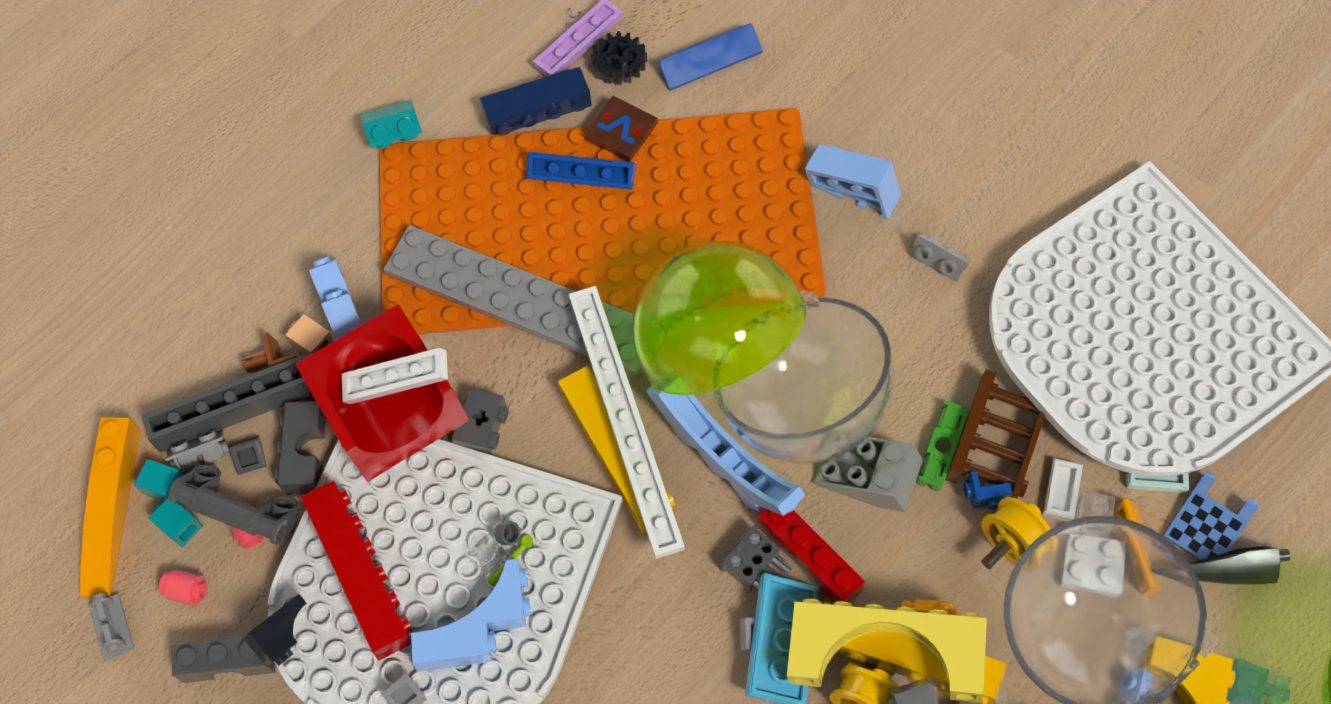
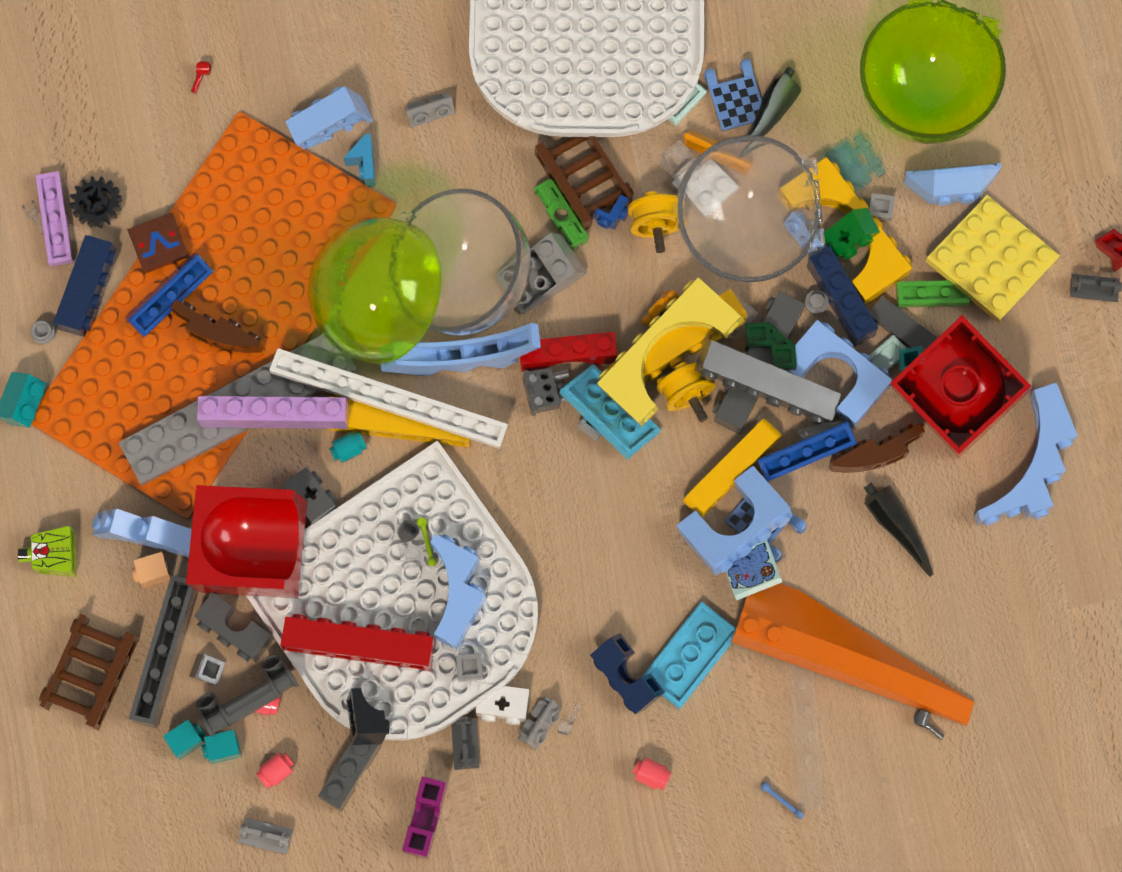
camera: 55 degrees left, 10 degrees up
(107, 504) = (173, 787): light orange slope -> none
(182, 379) = (103, 691): none -> reddish brown fence
(207, 444) = (179, 689): light grey hinge -> none
(268, 356) = (143, 607): dark orange bracket -> none
(269, 246) = (51, 552): none -> lime torso
(394, 376) = (252, 522): white plate -> none
(469, 100) = (42, 332): none -> light grey plate
(531, 327) = (272, 412): none -> lavender brick
(554, 420) = (347, 447): none -> teal brick
(576, 230) = (222, 335): none -> reddish brown slope
(709, 56) = (147, 139): blue slope -> none
(810, 53) = (202, 68): none -> red hand
(844, 232) = (362, 155): none -> dark azure slope
(1062, 490) = (647, 165): white tile -> none

